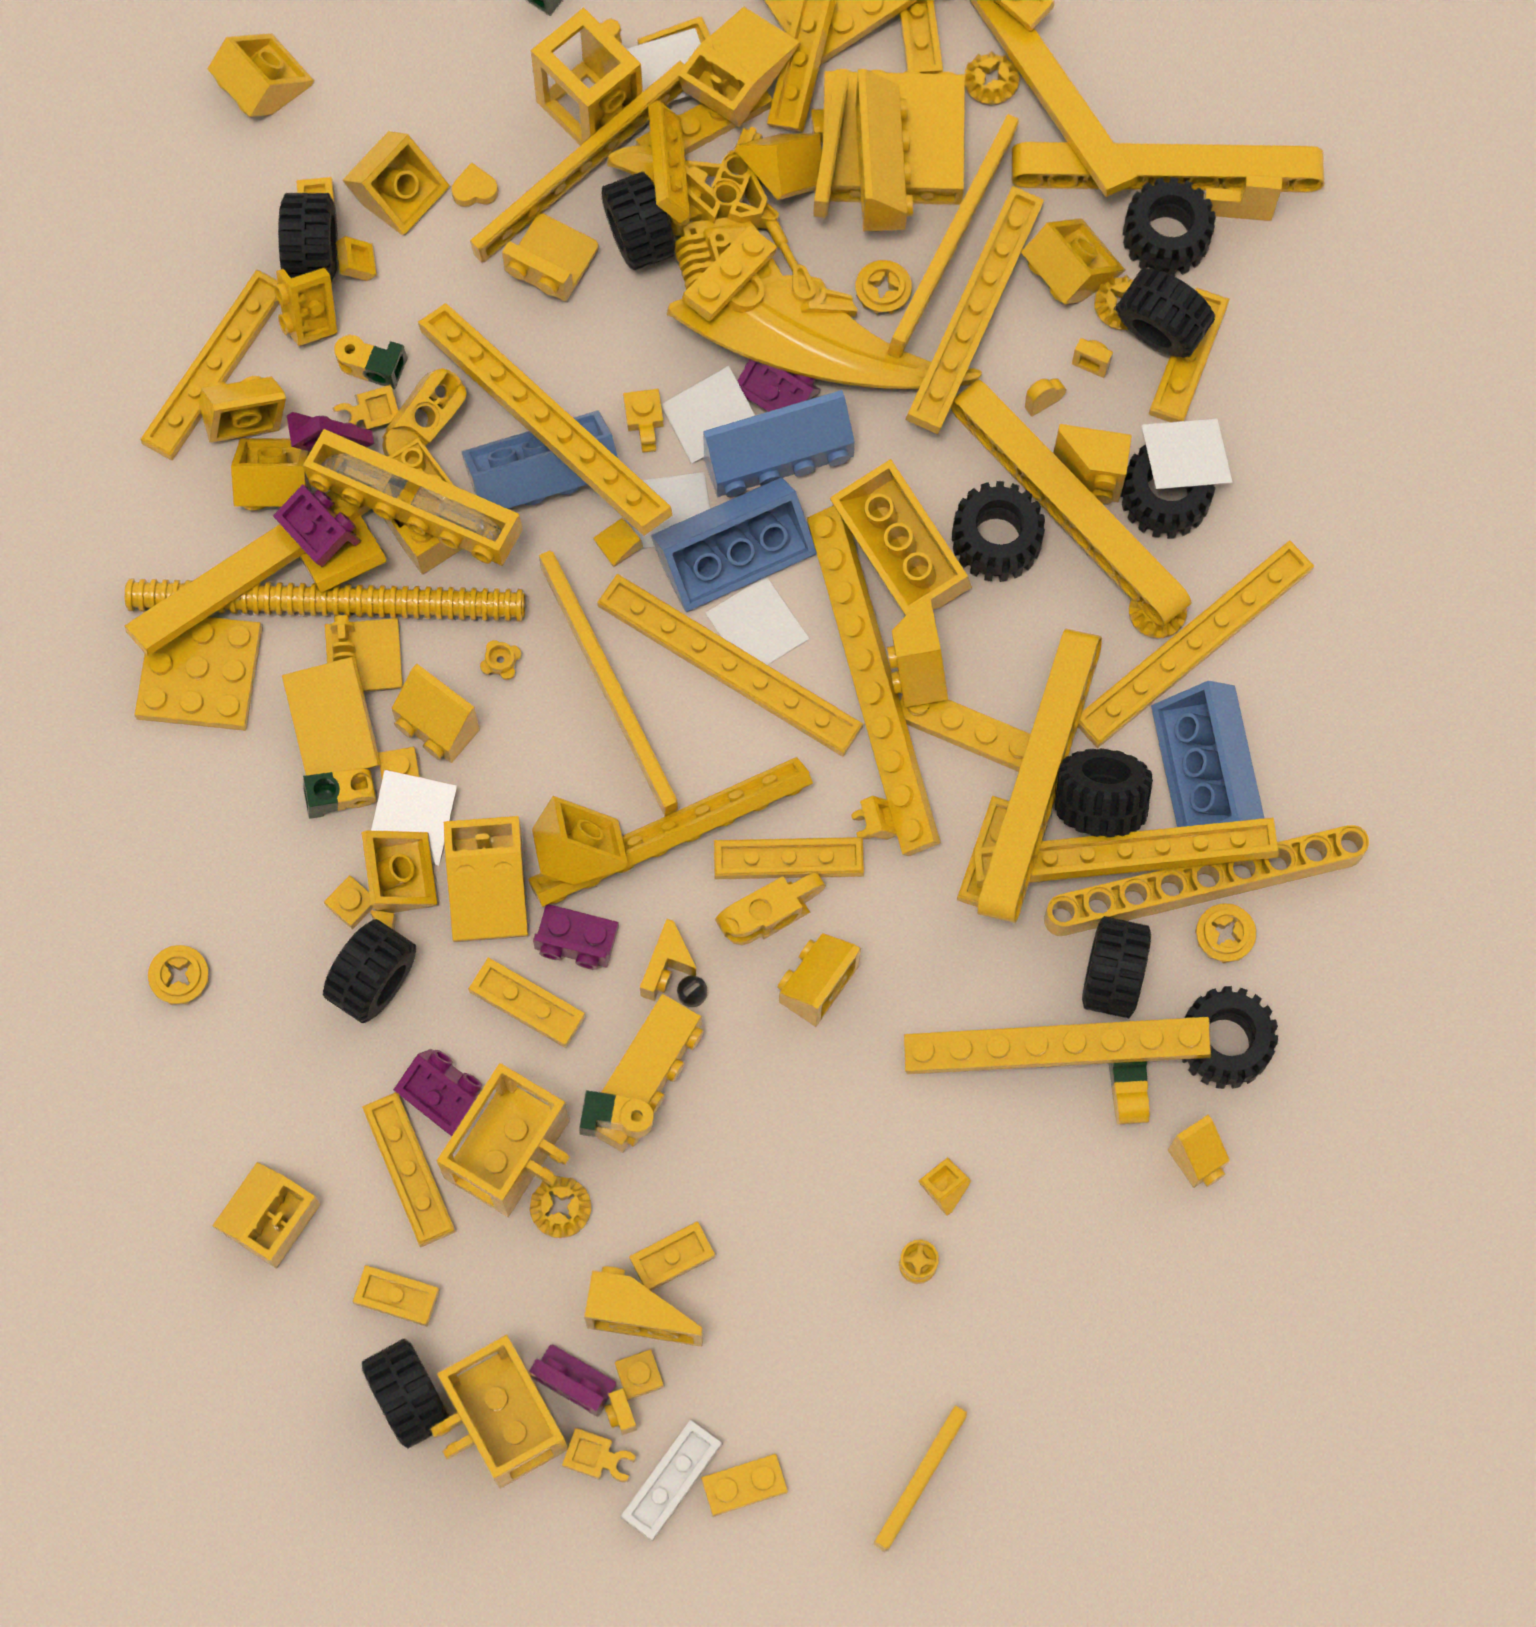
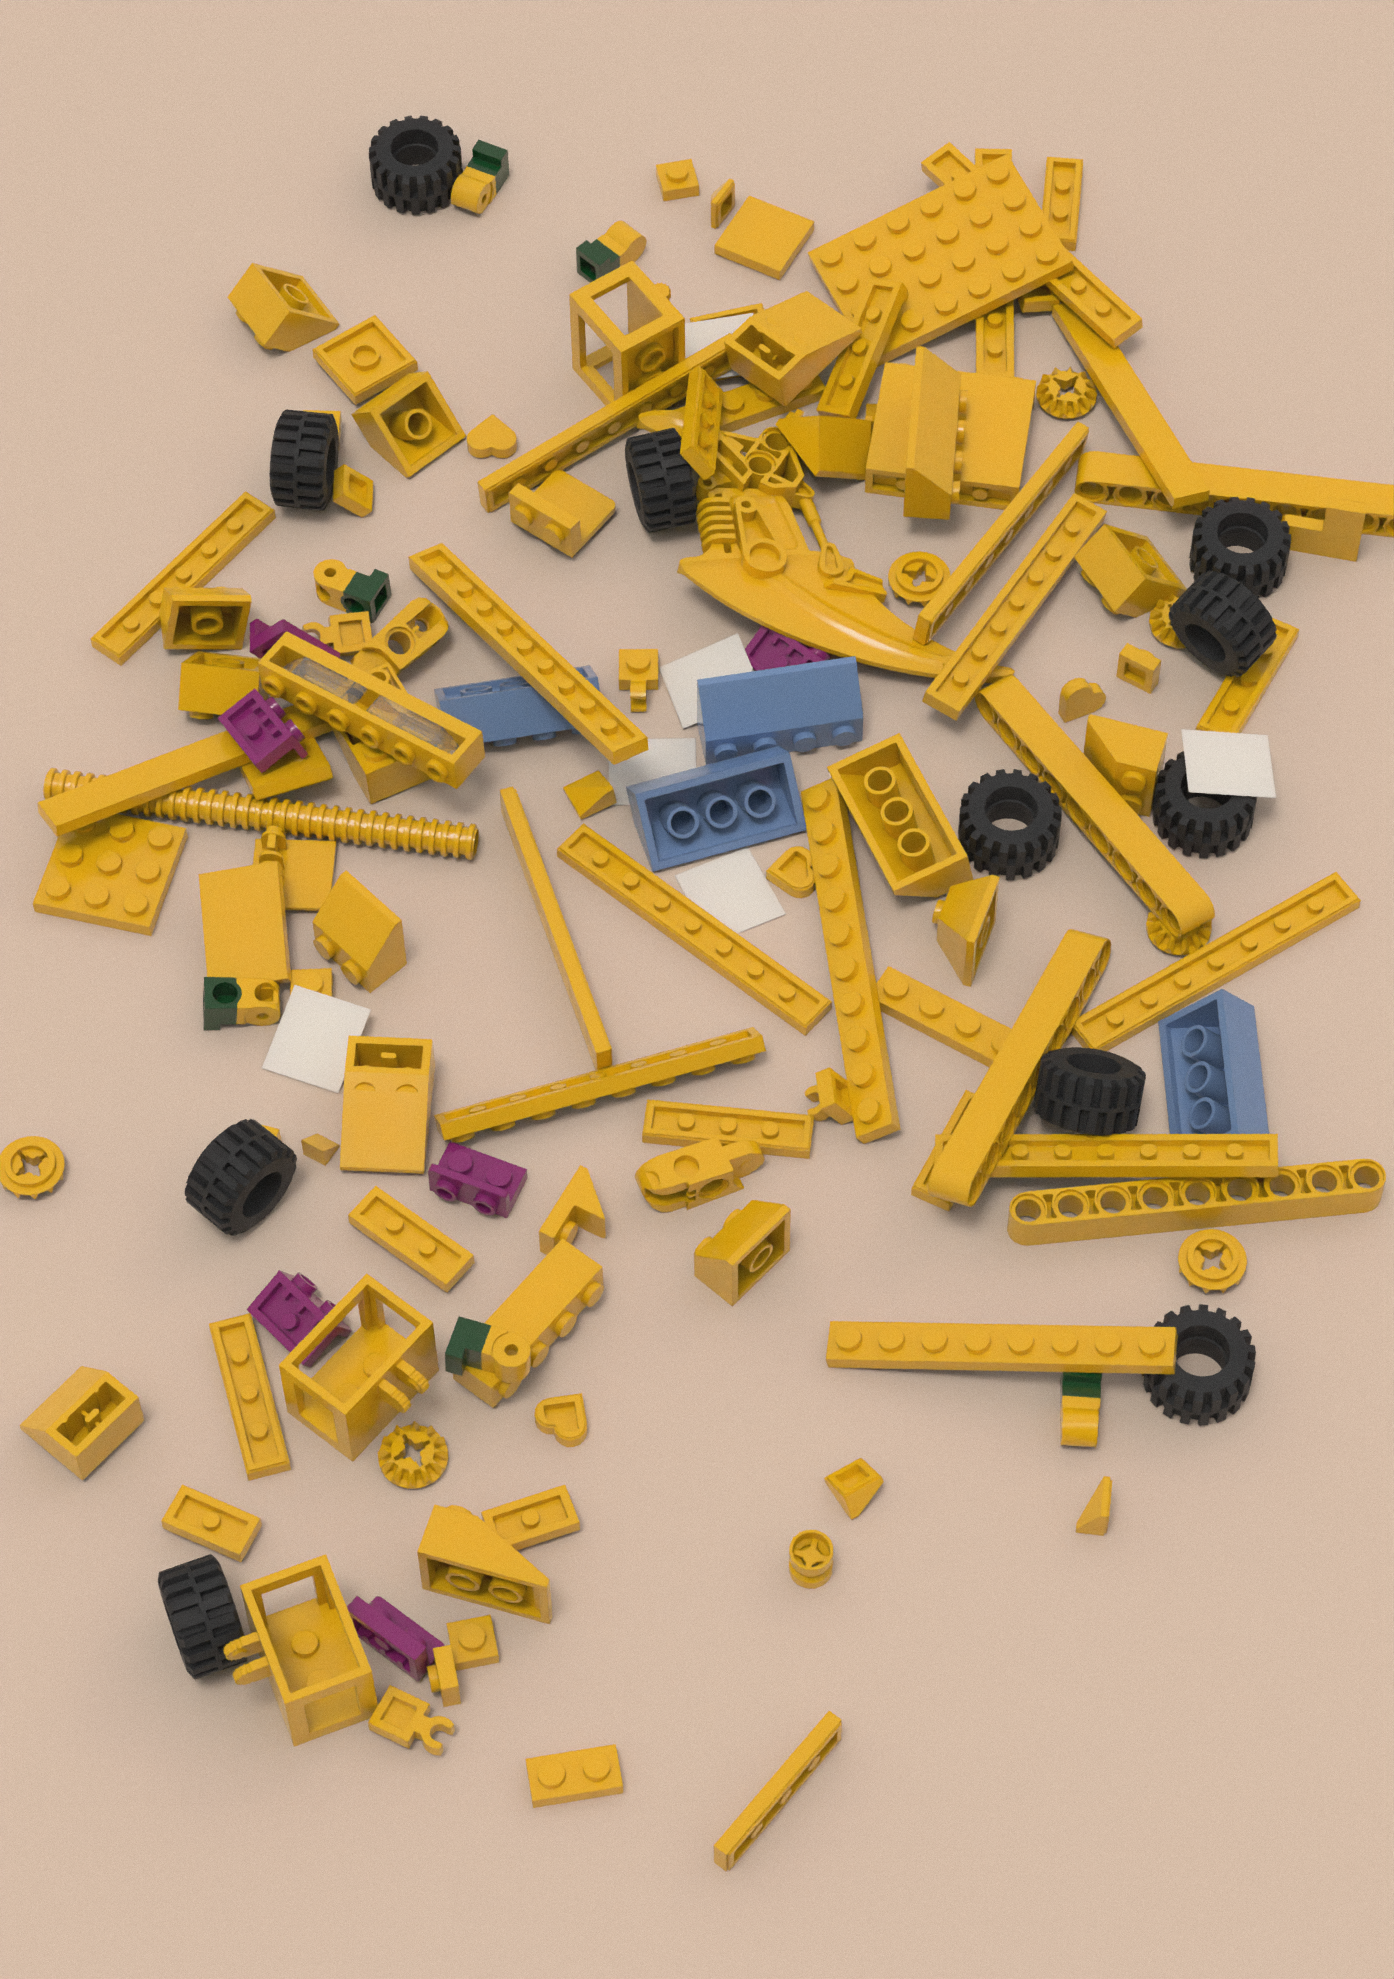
camera: 10 degrees right, 15 degrees down
(306, 305) = (291, 524): yellow bracket -> none
(344, 117) = (365, 359): none -> yellow plate
(349, 902) = (231, 1110): yellow plate -> none
(399, 870) = (291, 1086): yellow slope -> none
(431, 922) = (319, 1148): none -> yellow piece
(498, 649) = (437, 885): yellow plate -> none
(577, 843) = (492, 1077): yellow slope -> none
(671, 1480) = (490, 1757): white plate -> none
(685, 1154) = (563, 1418): none -> yellow tile
(697, 996) = (602, 1254): black hinge -> none
(729, 273) = (750, 536): yellow plate -> none
(811, 598) = (793, 872): none -> yellow tile
(830, 146) = (879, 428): yellow tile -> none
(918, 657) = (899, 932): yellow slope -> none
(971, 636) = (966, 924): none -> yellow slope
(1116, 967) = (1079, 1270): black tyre -> none
(1157, 1186) = (1096, 1514): none -> yellow slope
(1200, 1153) = (1150, 1477): yellow slope -> none

